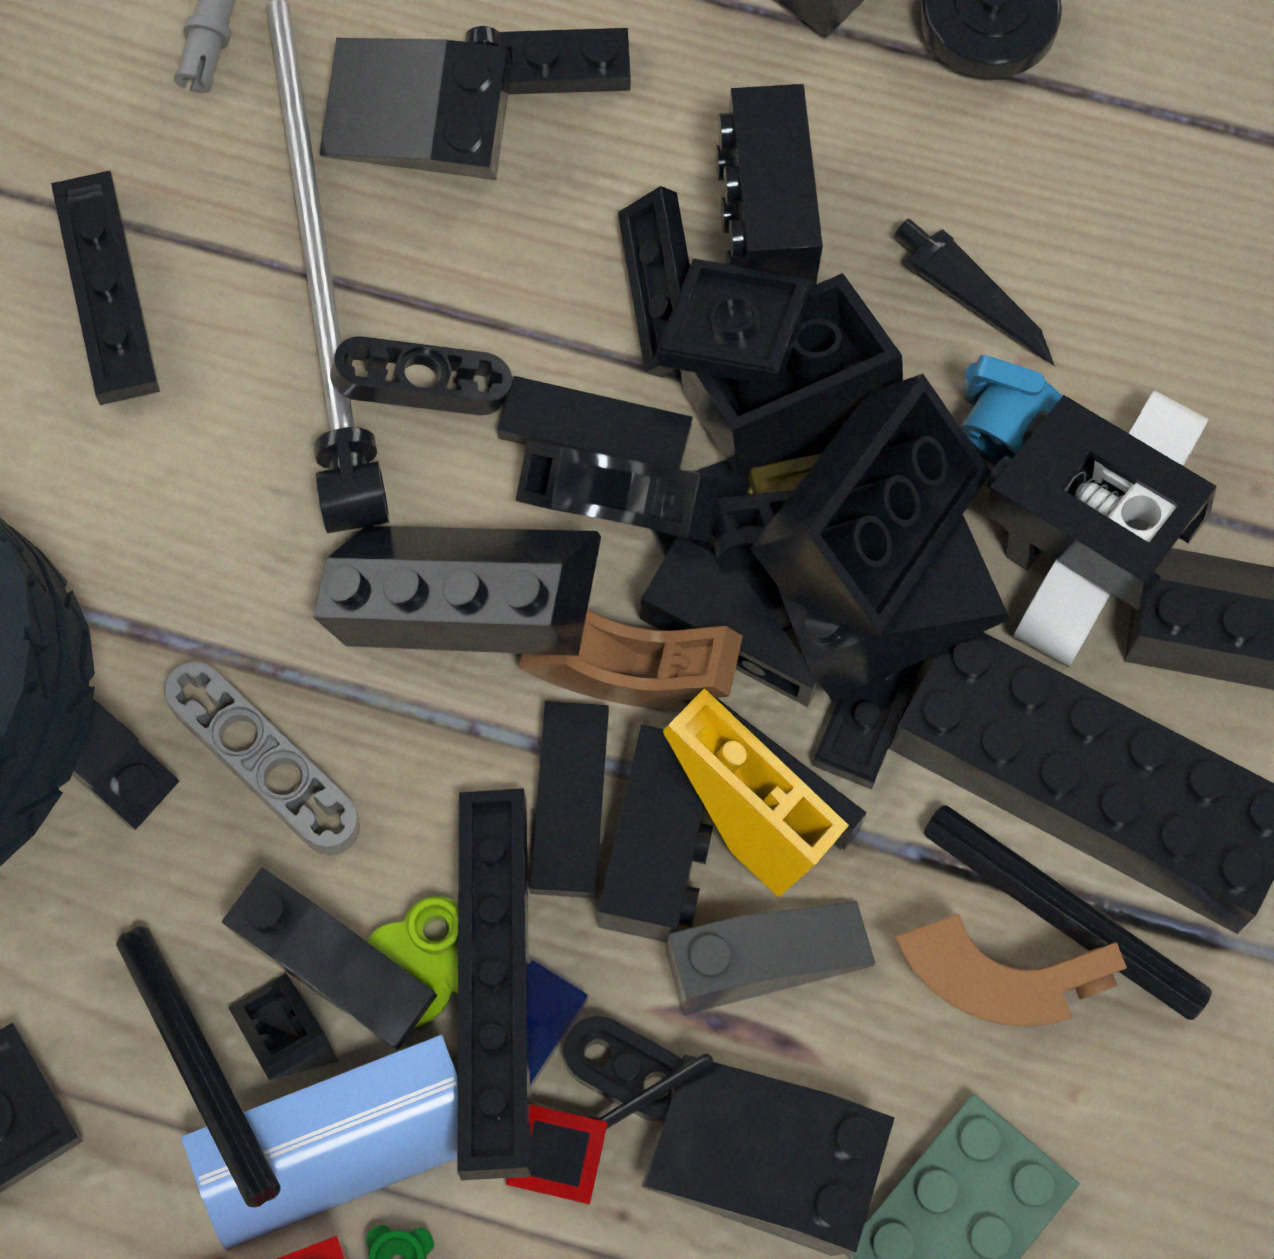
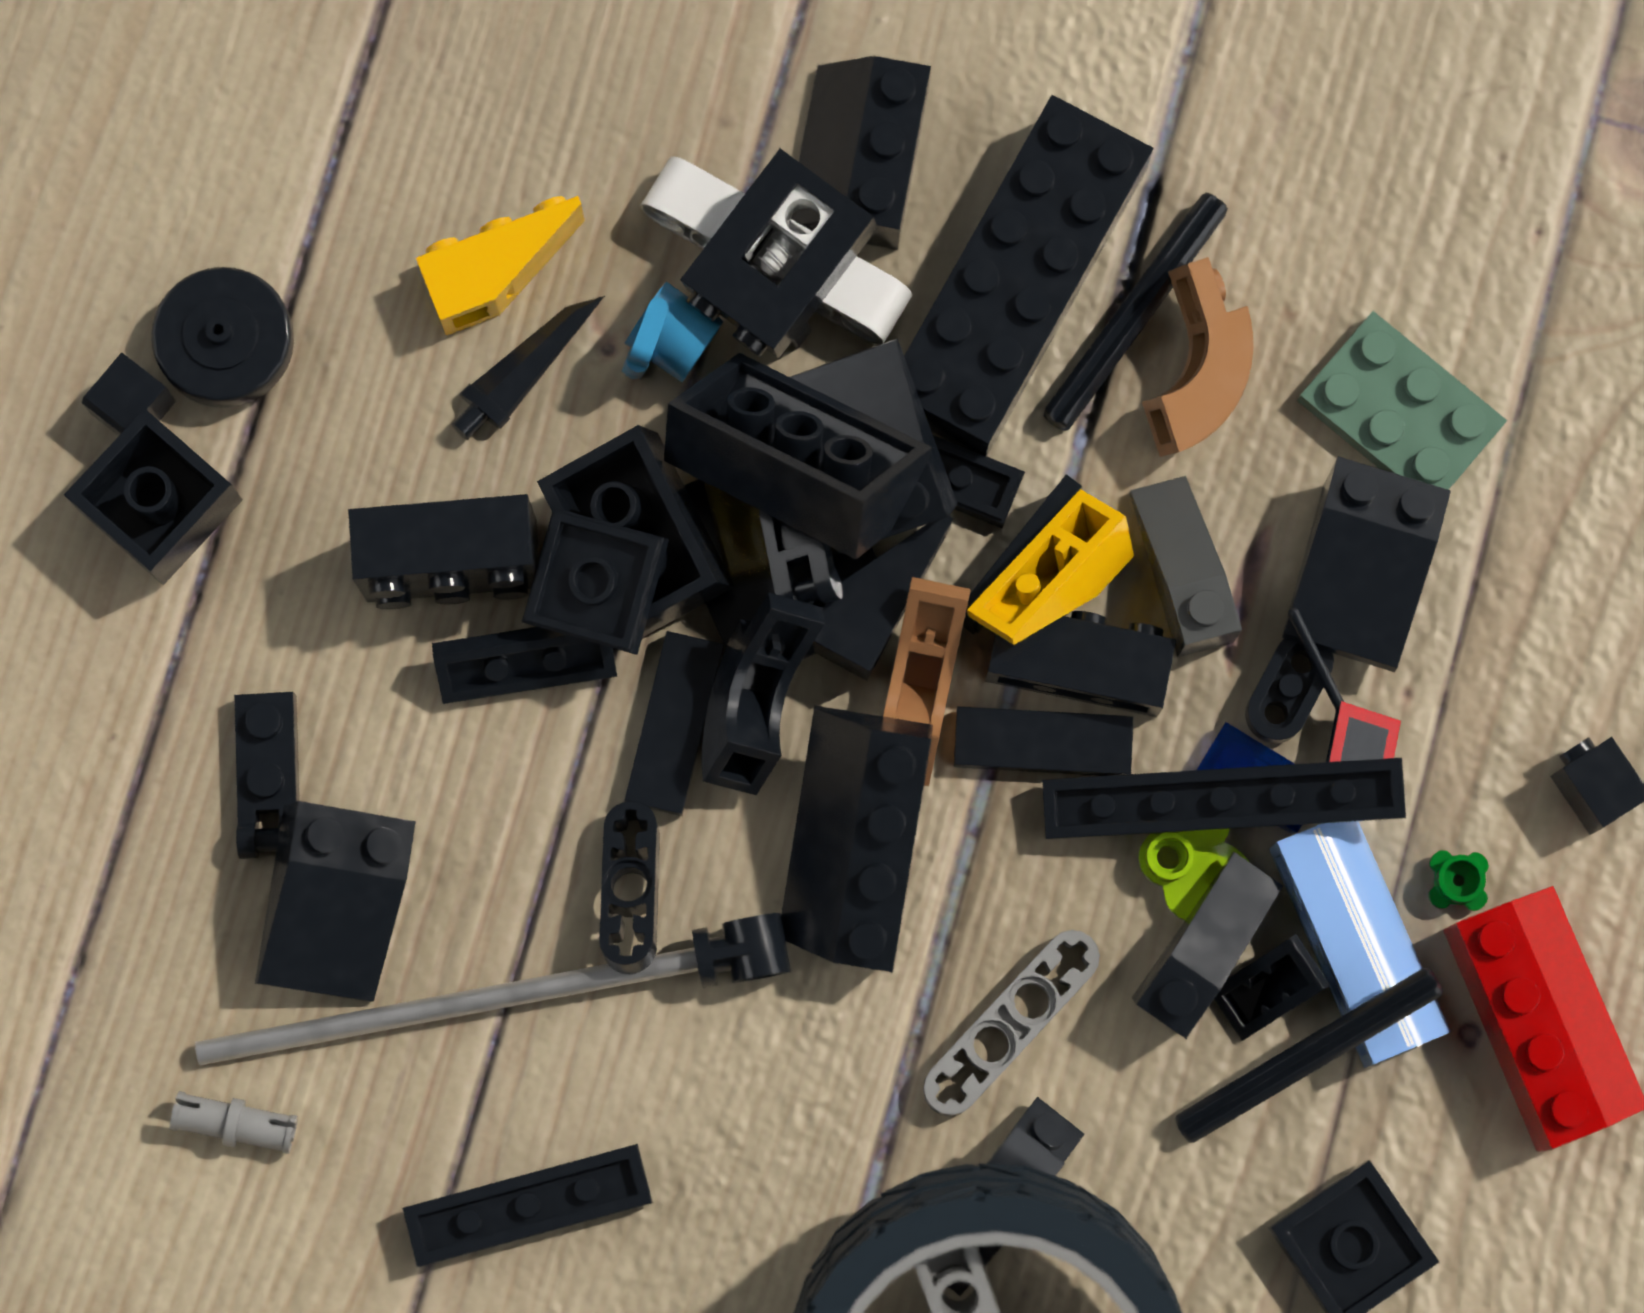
camera: 90 degrees left, 10 degrees up
(1072, 249) = (487, 271): none -> yellow slope

